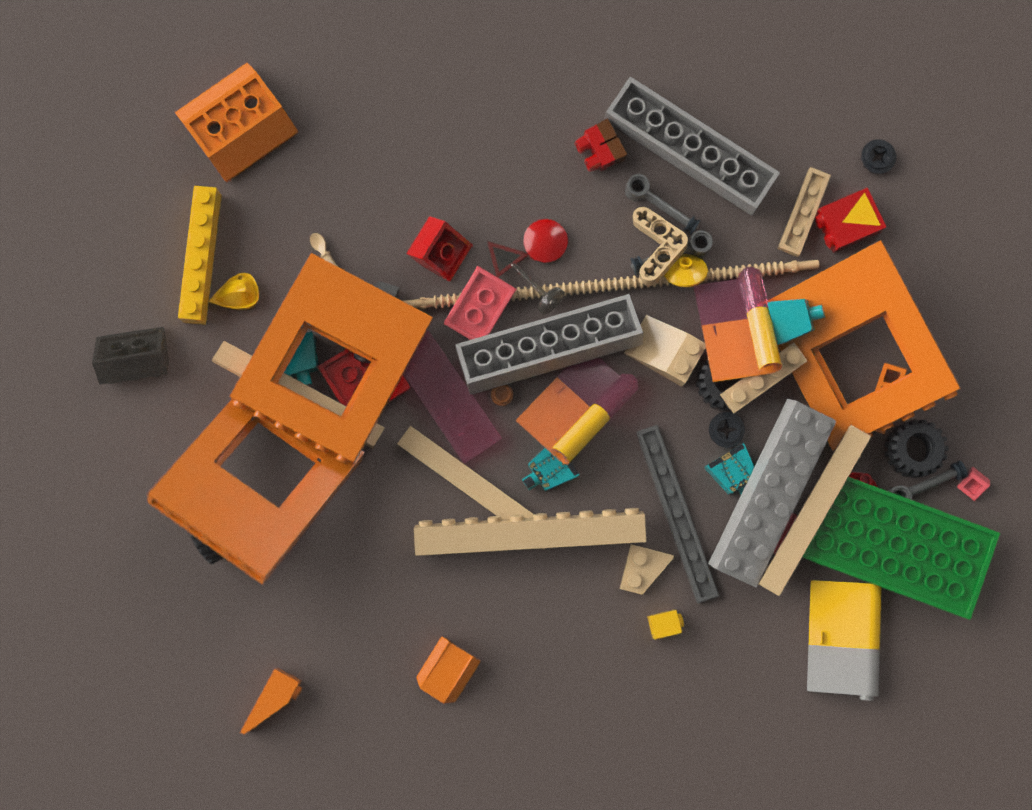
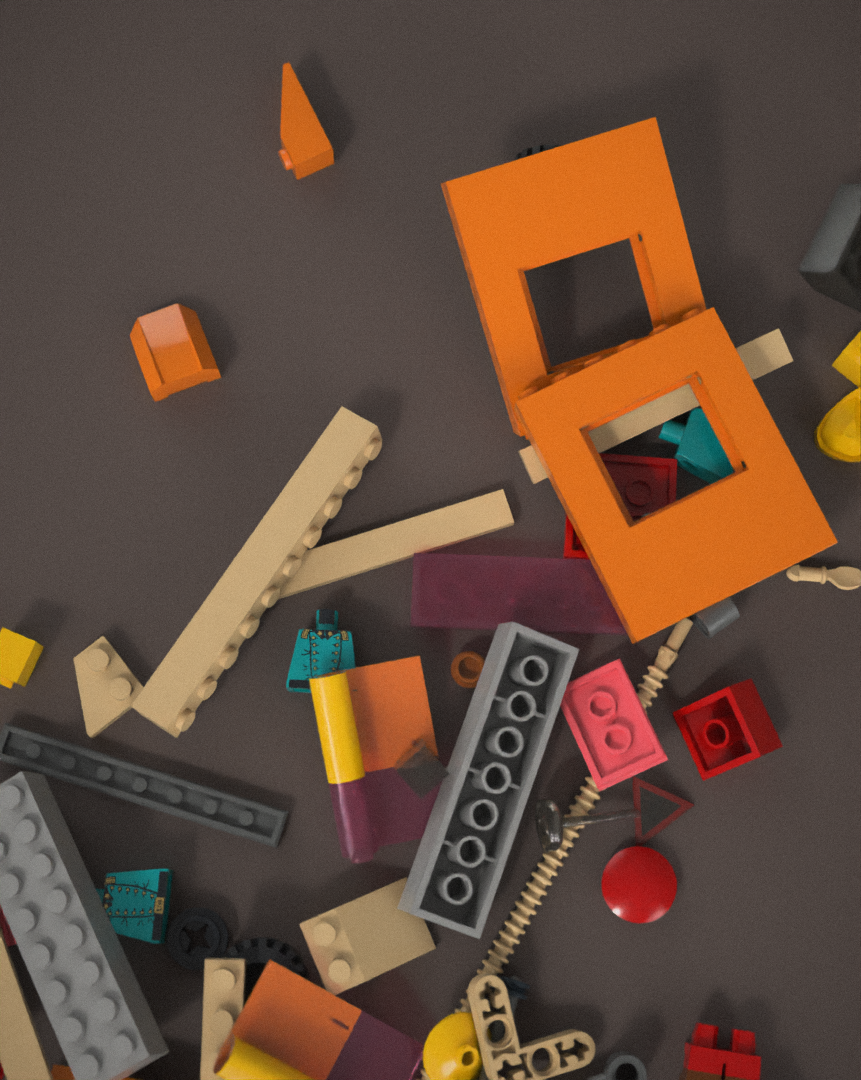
camera: 130 degrees right, 5 degrees down
(570, 378) = (421, 768): none -> clear smoke brick

